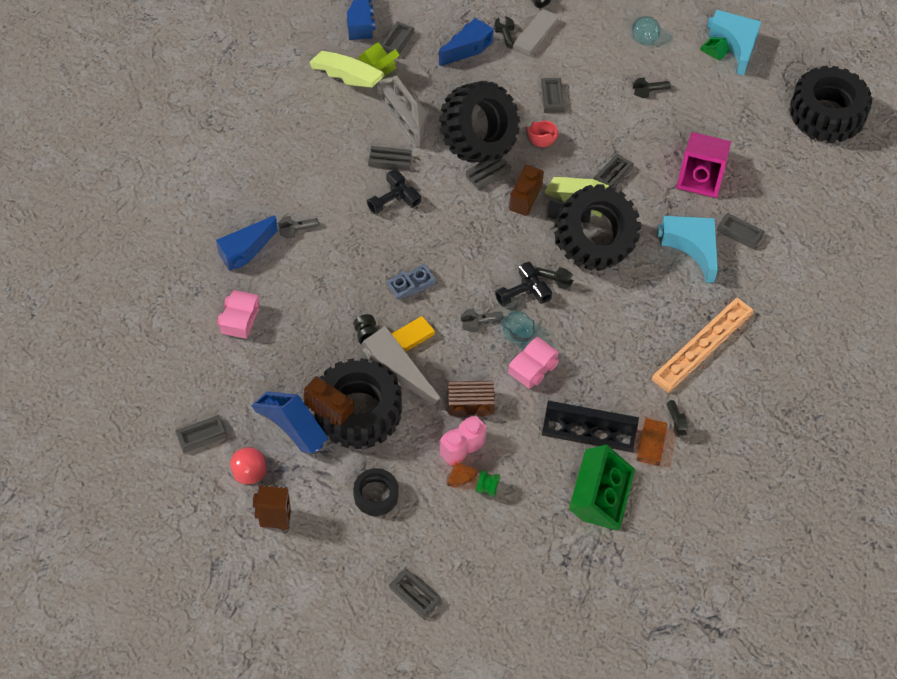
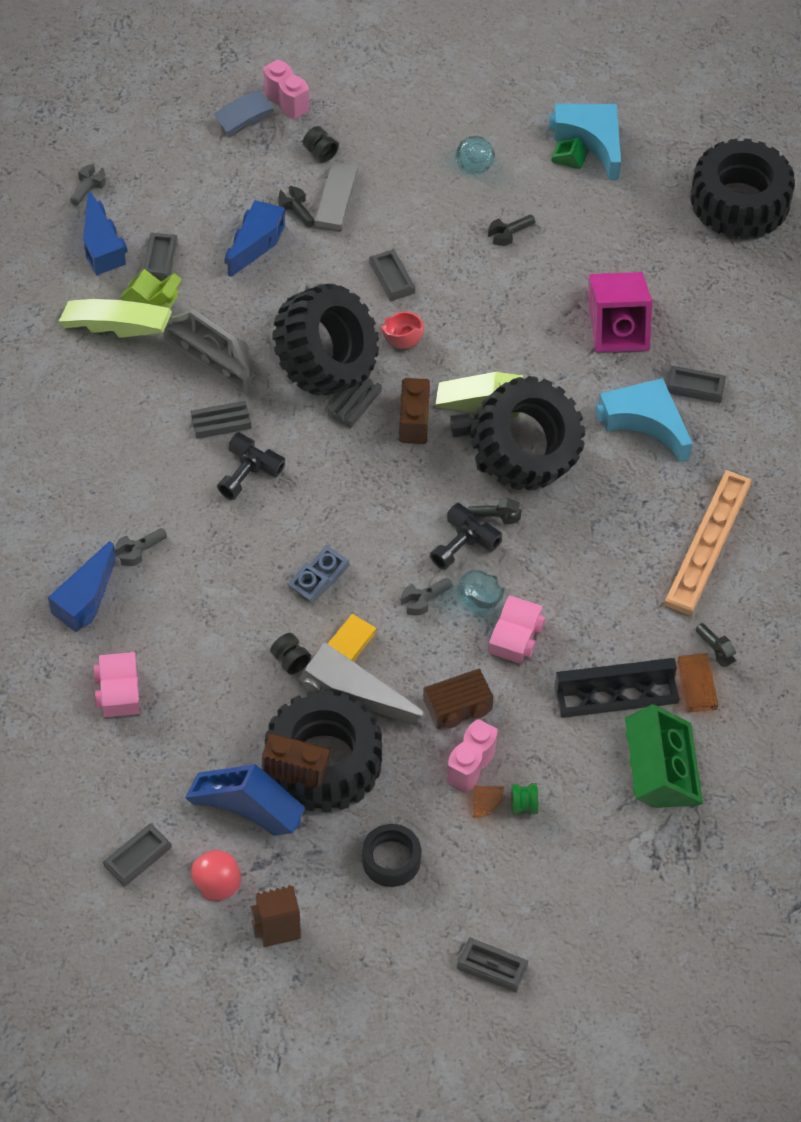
camera: 20 degrees left, 0 degrees up
(623, 161) = (521, 357): dark grey tile -> none

